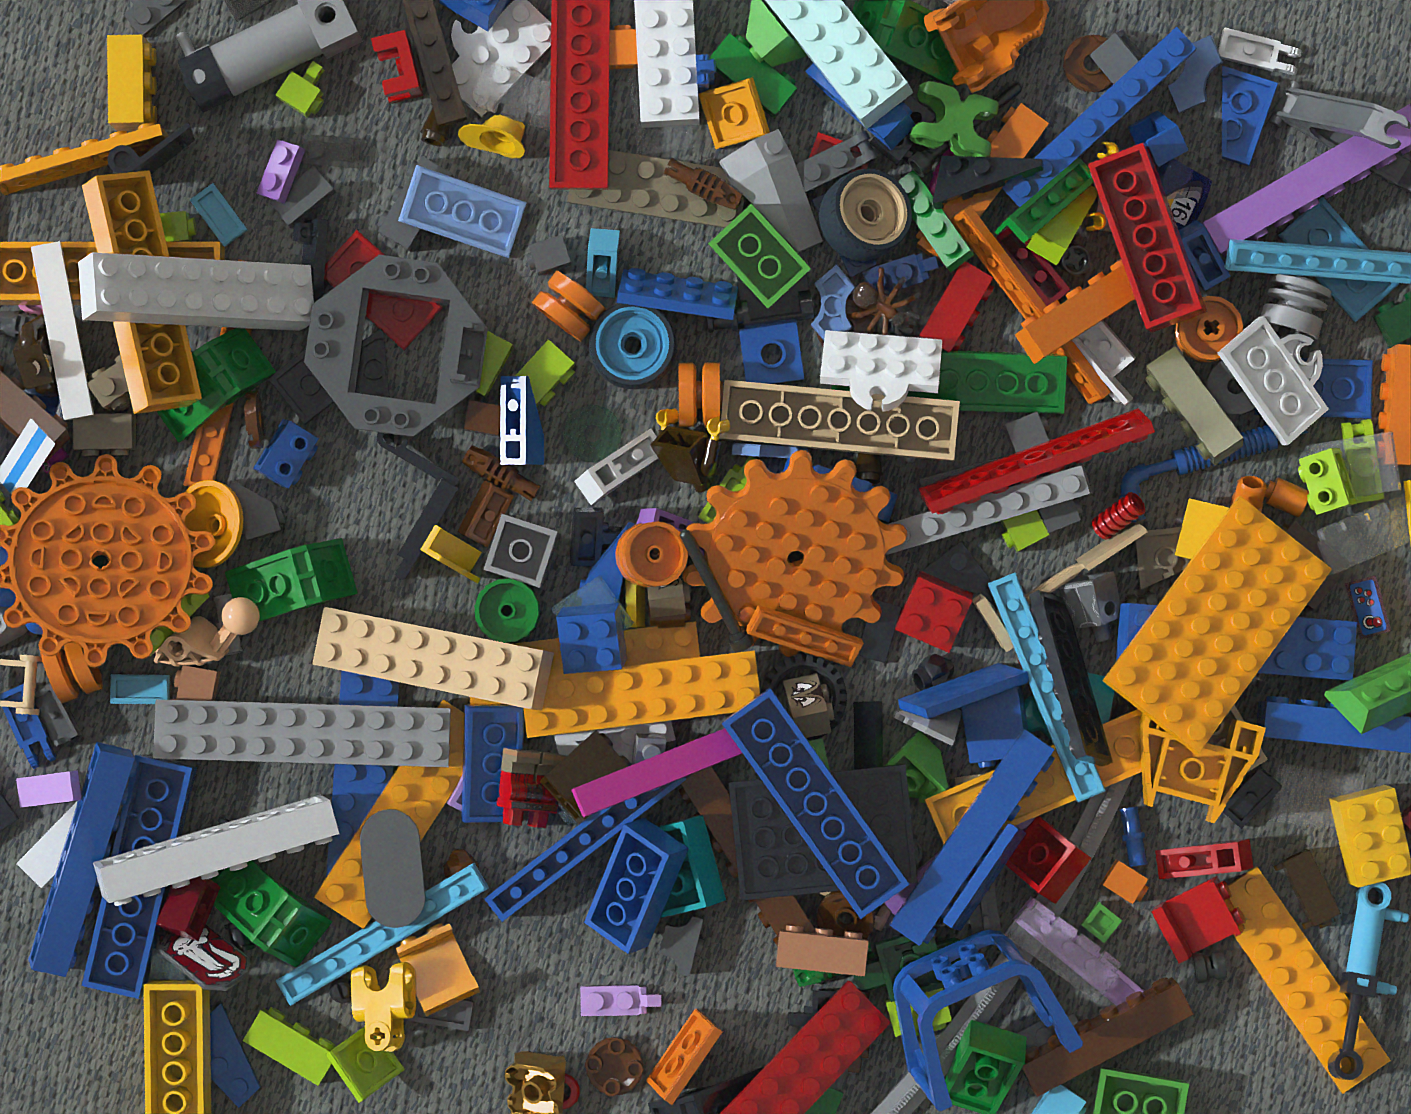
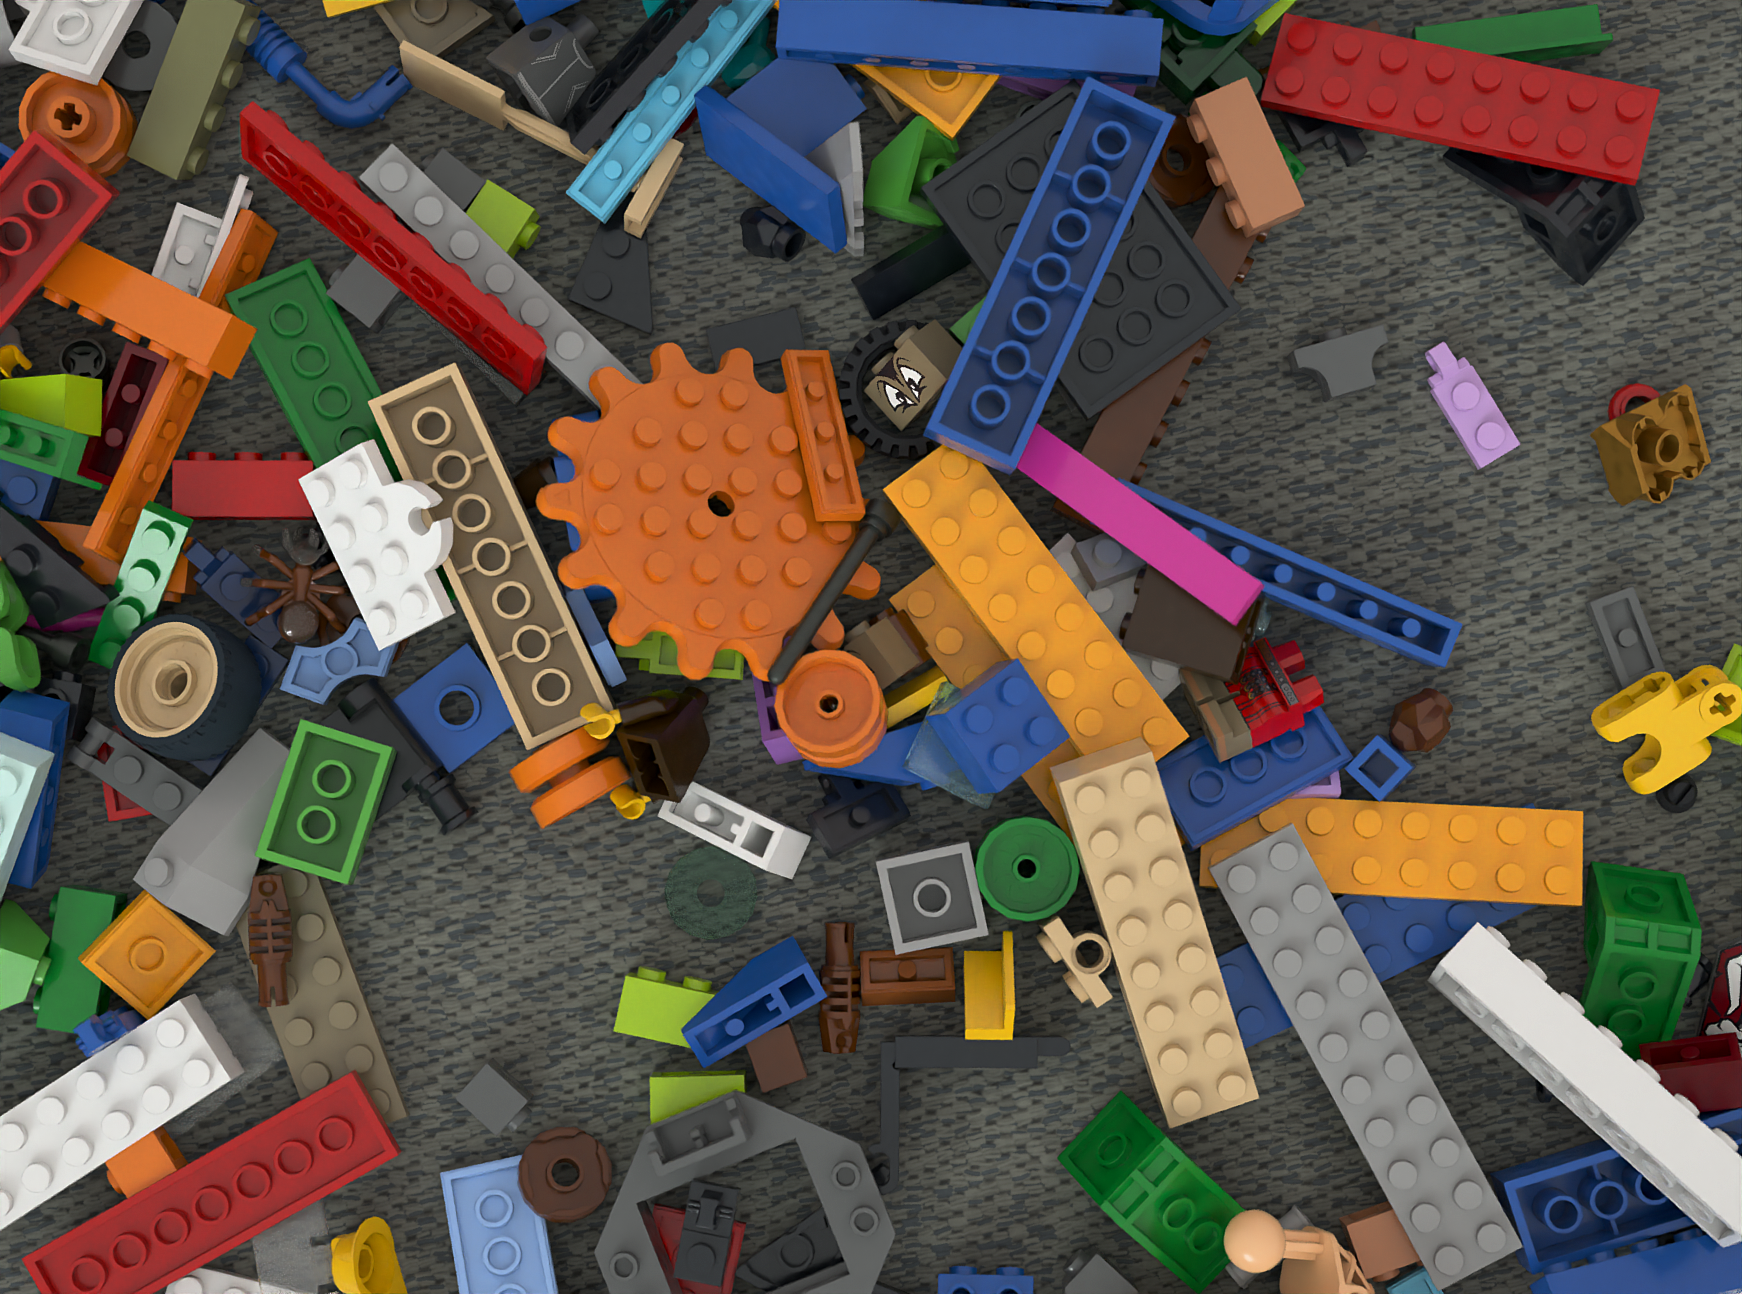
camera: 120 degrees left, 0 degrees up
(377, 937) = (1571, 780): medium azure tile -> none
(392, 868) = (1479, 819): dark grey tile -> none
(413, 329) = (706, 1232): none -> black hinge
(431, 607) = (1081, 977): none -> tan plate
(439, 969) = (1573, 674): light orange panel -> none
(449, 834) = (1380, 767): none -> blue brick
(480, 253) = (560, 1202): none -> reddish brown tile
(571, 303) = (542, 1028): orange wheel -> none
(602, 262) = (464, 1017): medium azure slope -> none
(614, 1066) = (1561, 359): reddish brown dish -> none
(628, 322) = (517, 914): dark azure wheel -> none
(636, 885) = (1304, 466): blue brick -> none
(677, 294) = (447, 886): blue plate -> none
(683, 1056) = (1496, 268): orange tile -> none
(698, 879) = (1239, 420): teal brick -> none
(934, 611) = (685, 276): red brick -> none
(1119, 515) = (407, 100): red piece -> none

